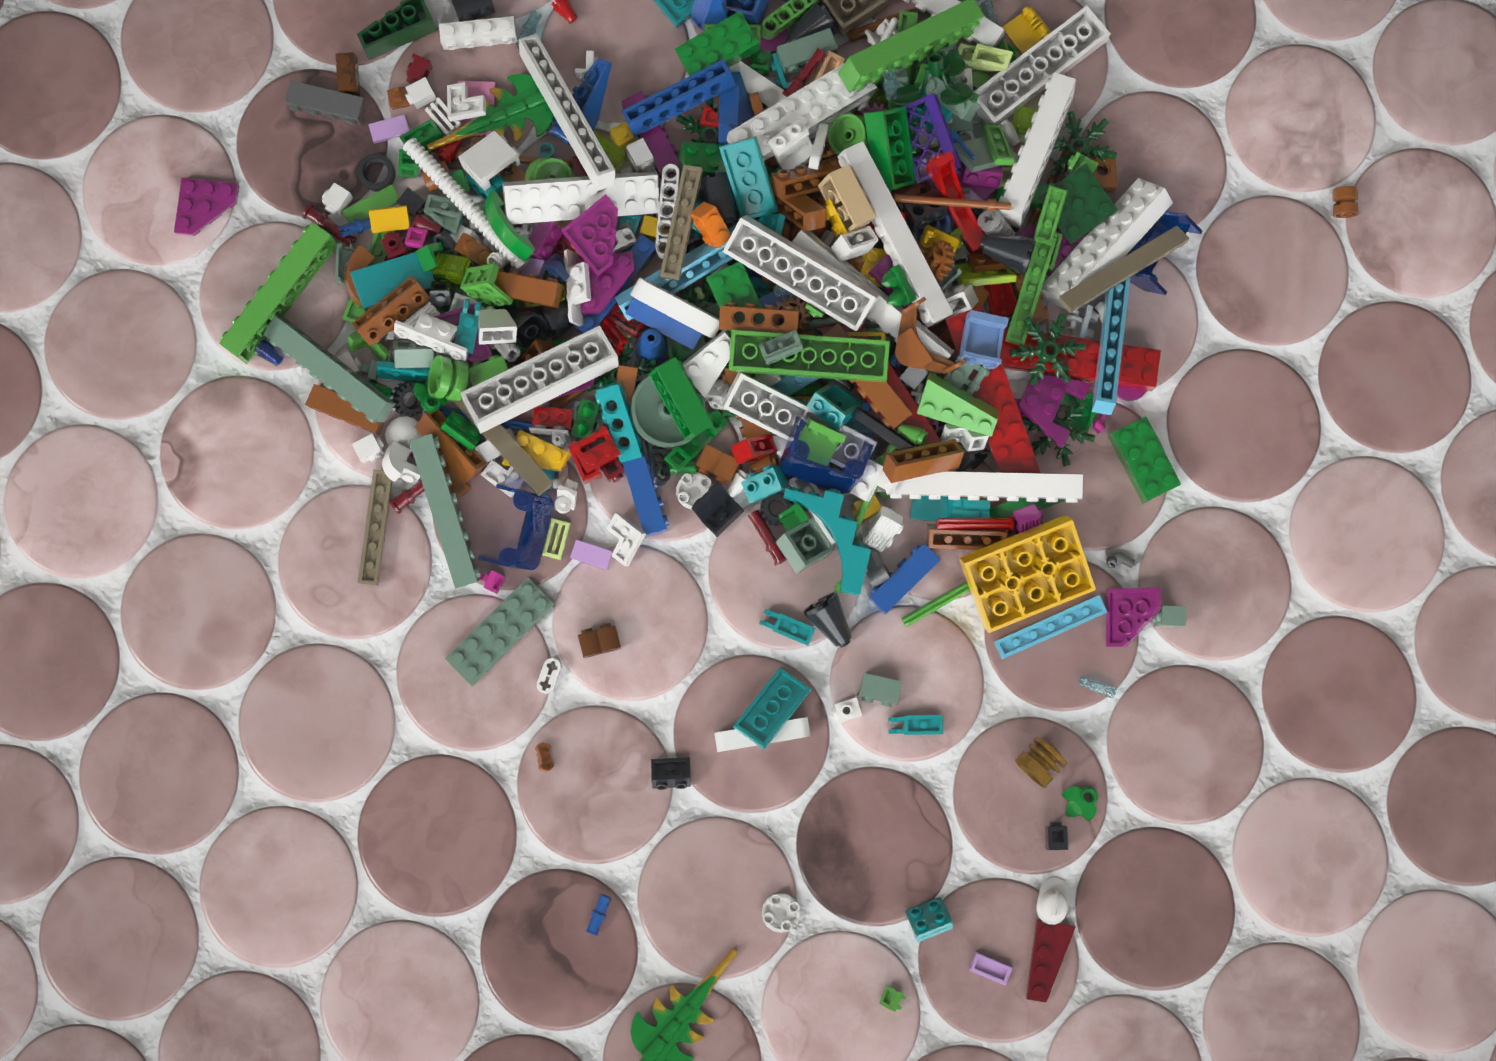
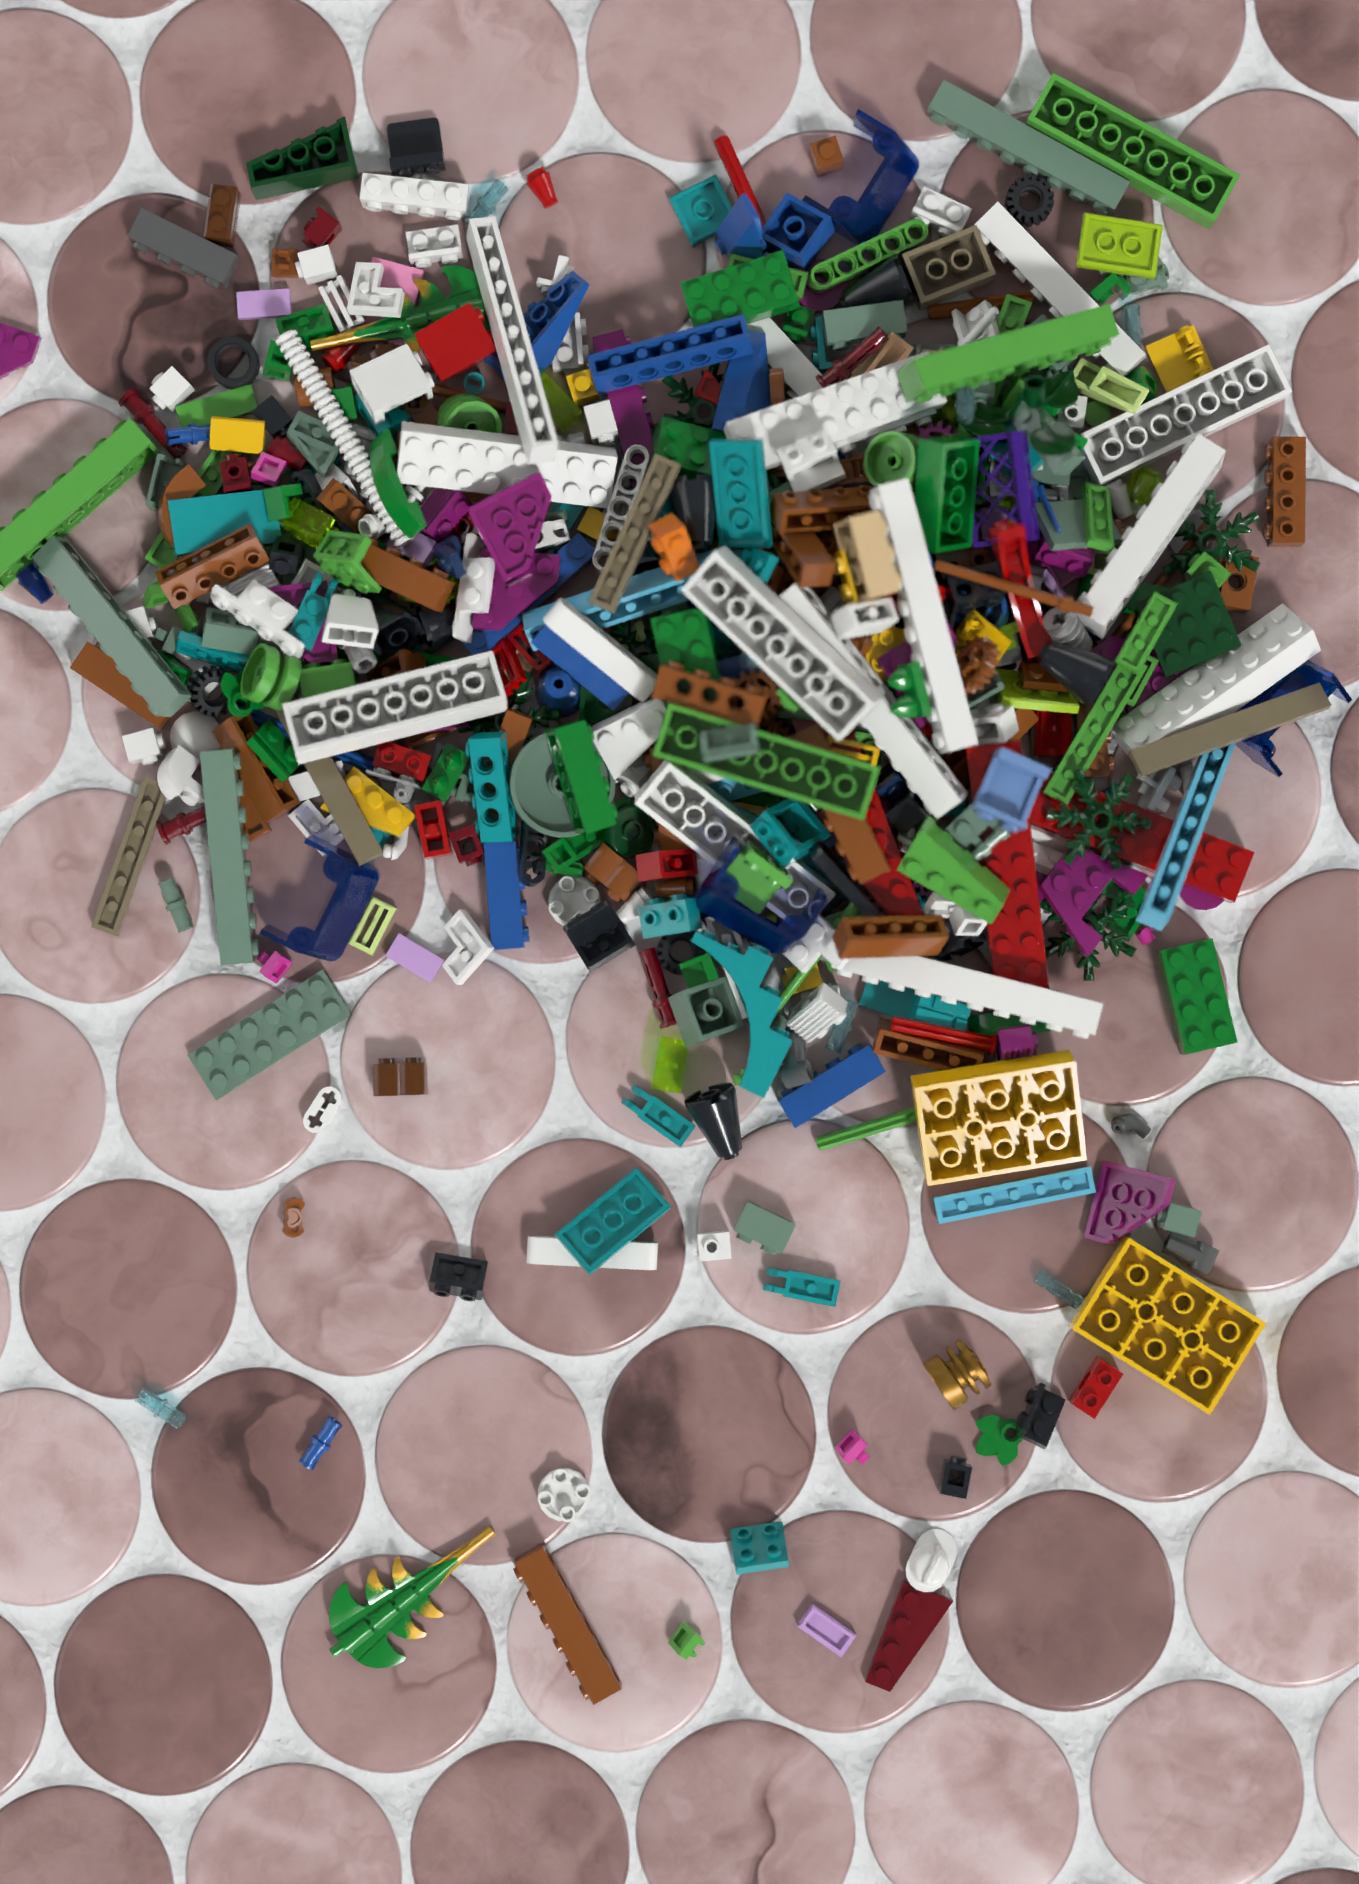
camera: 15 degrees right, 5 degrees up
(414, 554) = (176, 905): none -> sand green pin
(478, 915) = (160, 1408): none -> clear light blue axle
(499, 64) = (434, 246): none -> white bracket
(528, 123) = (456, 342): none -> red brick
(566, 497) = (397, 874): white hips -> none
(598, 455) = (452, 827): red plate -> none
(609, 114) = (572, 351): none -> white bracket
(724, 432) = (632, 833): none -> dark green tile
(787, 589) = (670, 1065): none -> clear neon green hinge
(805, 1006) = (568, 1624): none -> dark orange brick
(818, 146) = (847, 468): white beam -> none
(901, 539) = (840, 1031): none -> clear light blue pin
(911, 350) = (908, 782): dark orange piece -> none
(913, 434) = (886, 896): bright green cone -> none
(978, 832) = (852, 1447): none -> dark pink tile
(1106, 779) = (1040, 1416): none -> black bracket
(1122, 103) = (1285, 491): none -> dark orange brick
(1140, 749) = (1095, 1387): none -> red brick
(1180, 694) = (1167, 1324): none -> yellow brick
(1188, 640) = (1194, 1253): none -> dark grey piece

